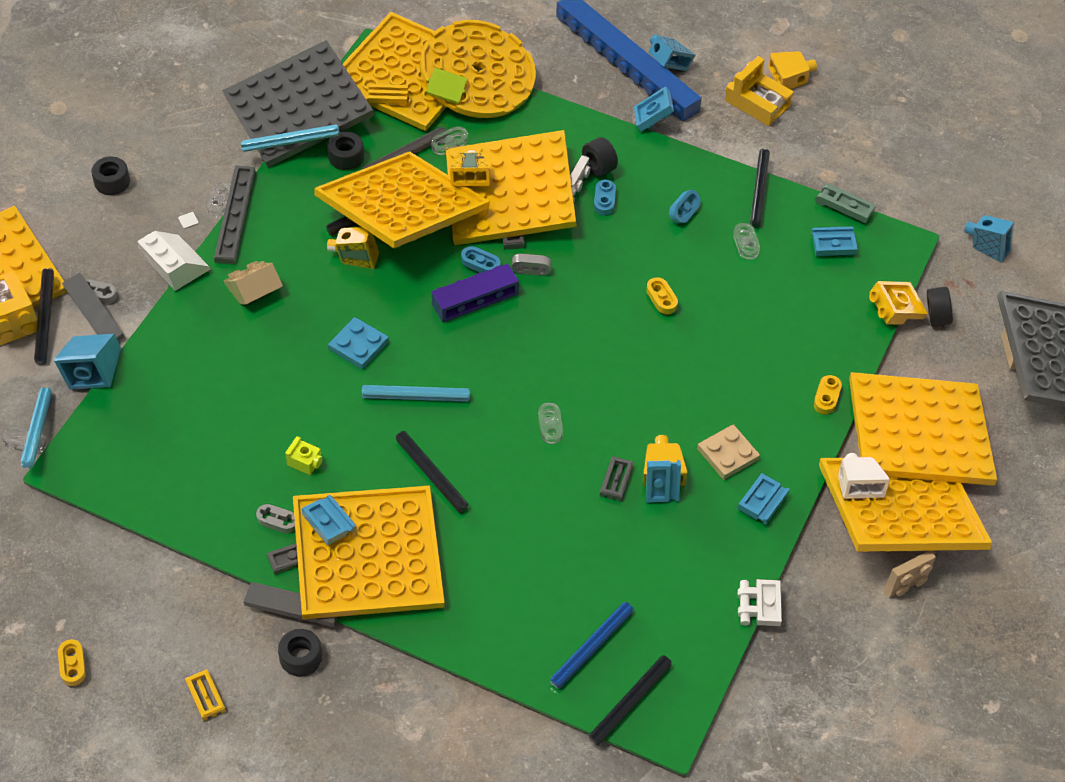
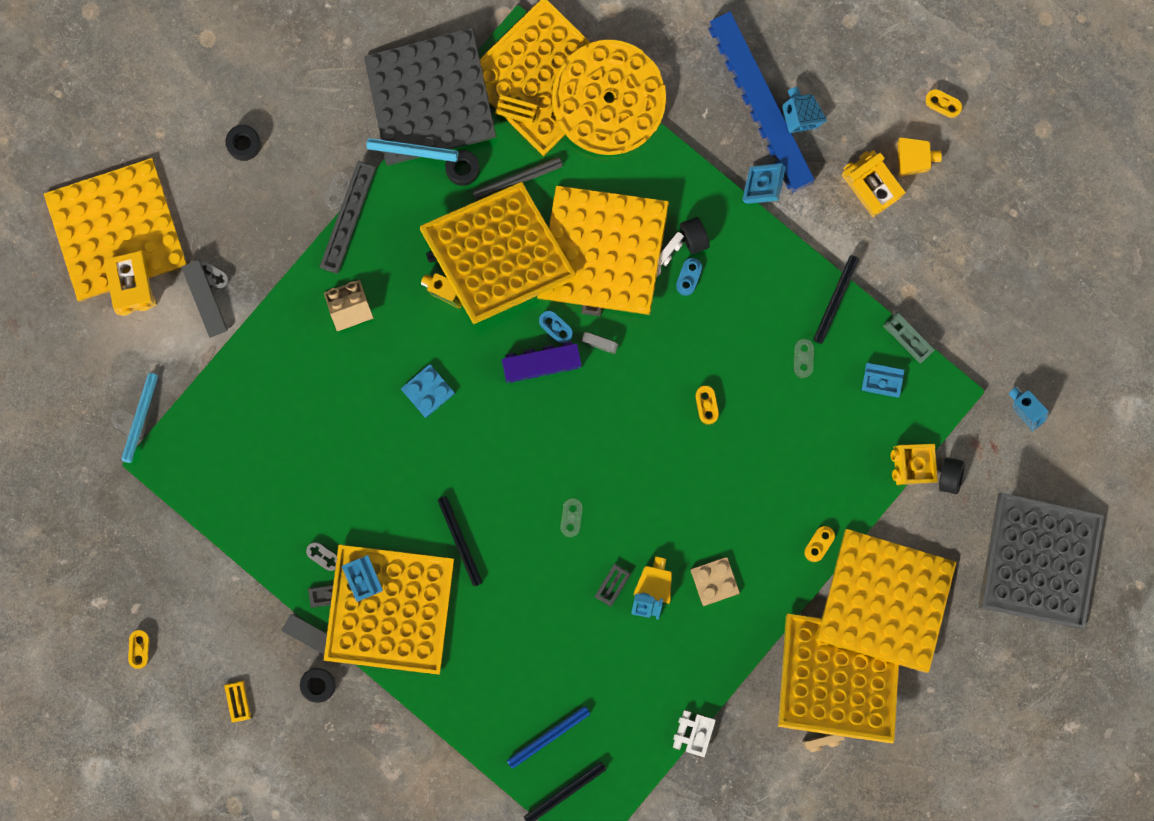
camera: 20 degrees right, 30 degrees up
(44, 314) = (161, 296): black axle -> none
(89, 361) = (193, 357): dark azure slope -> none
(172, 258) = (284, 258): white slope -> none
(188, 219) = (305, 207): white sticker -> none
(303, 456) = (349, 499): neon yellow brick -> none
(415, 393) = (465, 457): medium azure axle -> none
(446, 86) = (571, 119): lime piece -> none
(447, 140) = (561, 175): clear plate -> none
(470, 169) = (567, 231): yellow torso -> none
(683, 210) = (758, 309): dark azure plate -> none
(763, 498) = (728, 637): dark azure plate -> none
(800, 29) = (943, 103): none -> yellow plate
(862, 478) = (809, 651): white torso -> none

